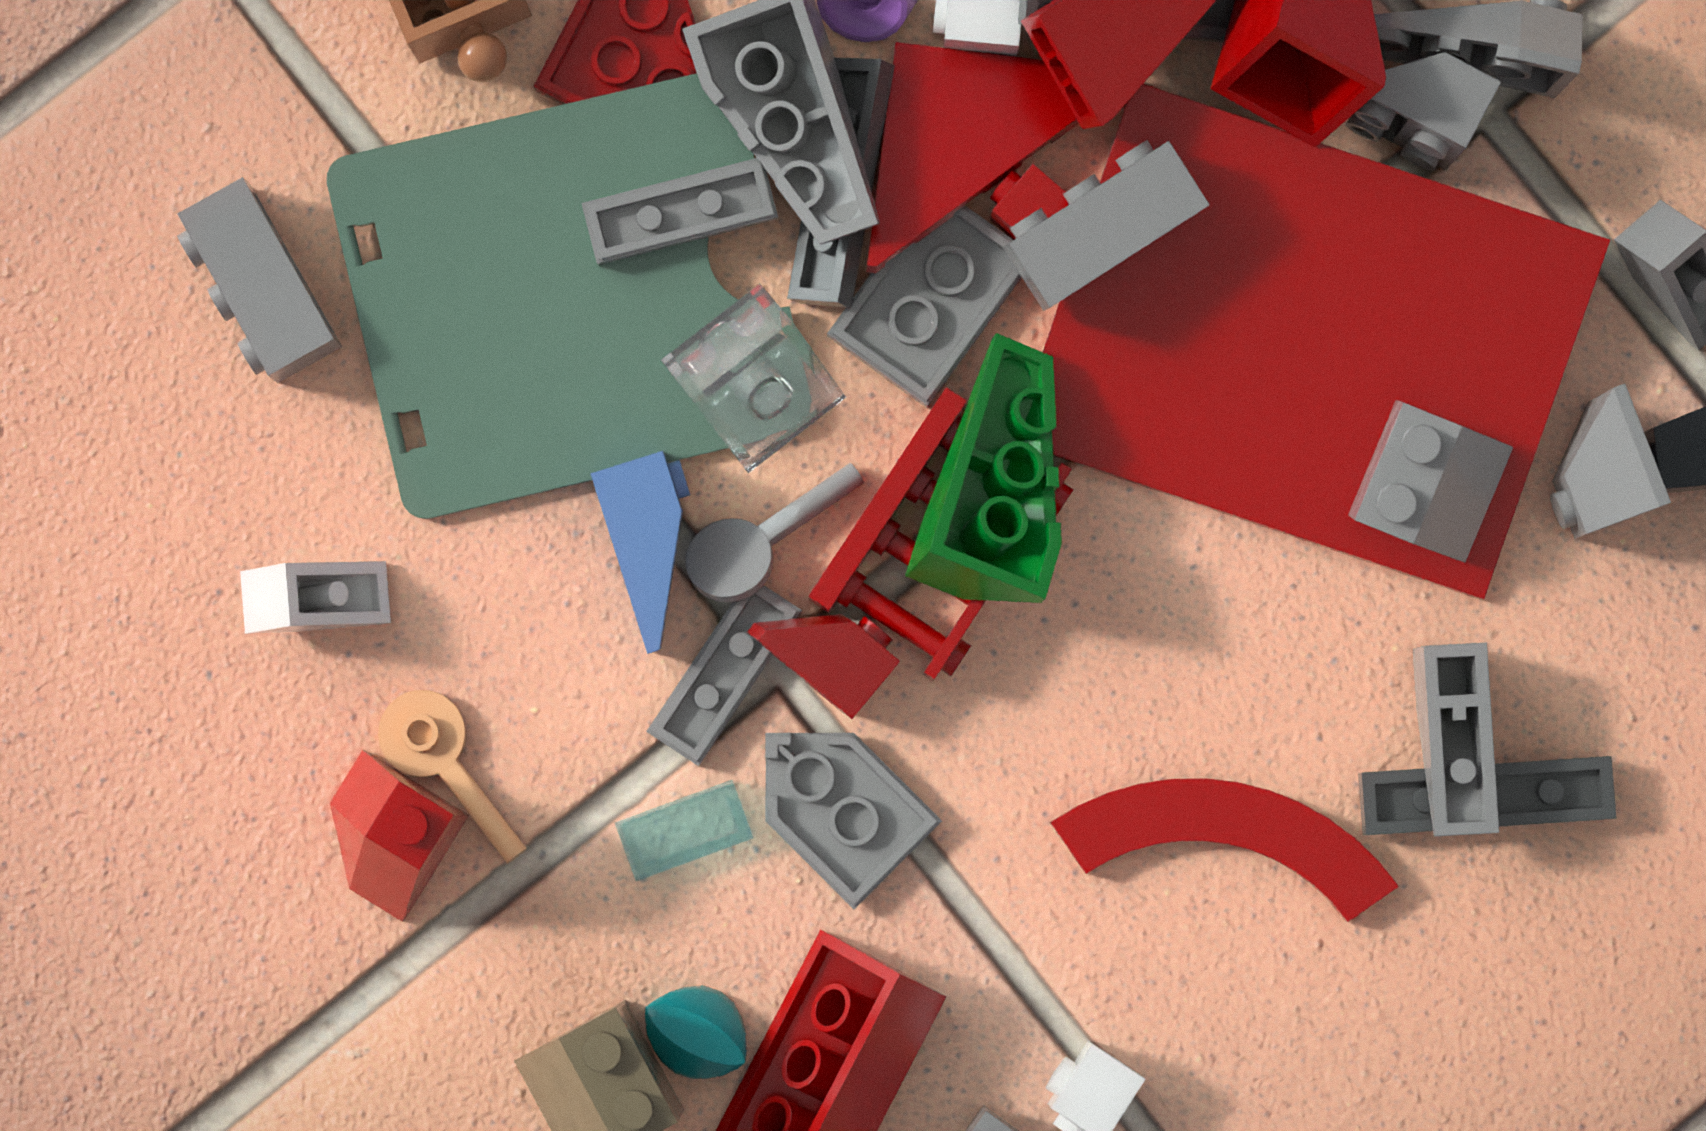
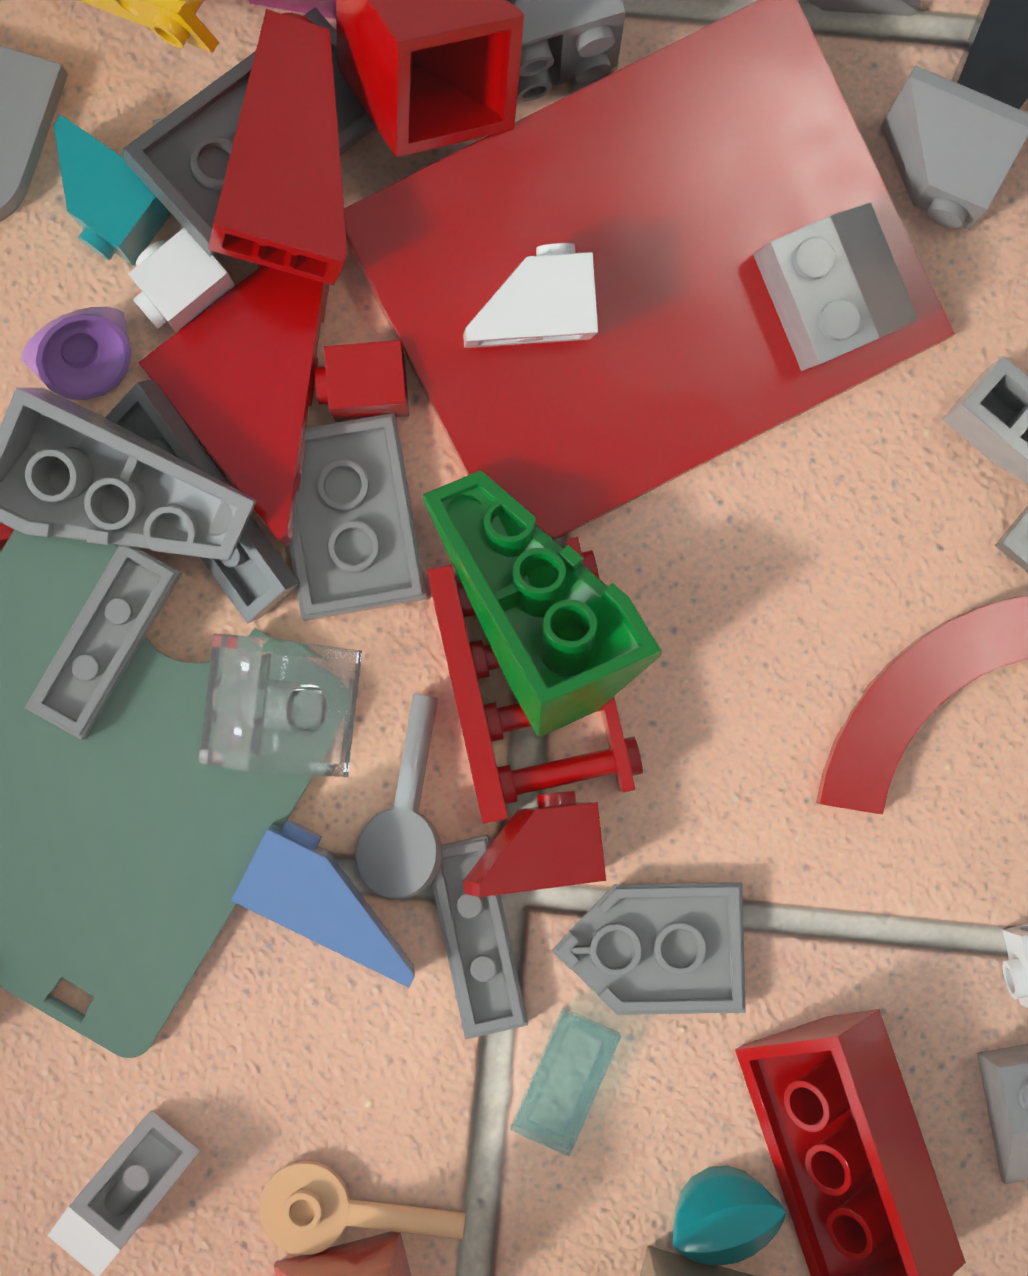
camera: 45 degrees left, 0 degrees up
(1104, 223) = (419, 333): light grey brick -> none
(1210, 284) = (541, 302): none -> white slope

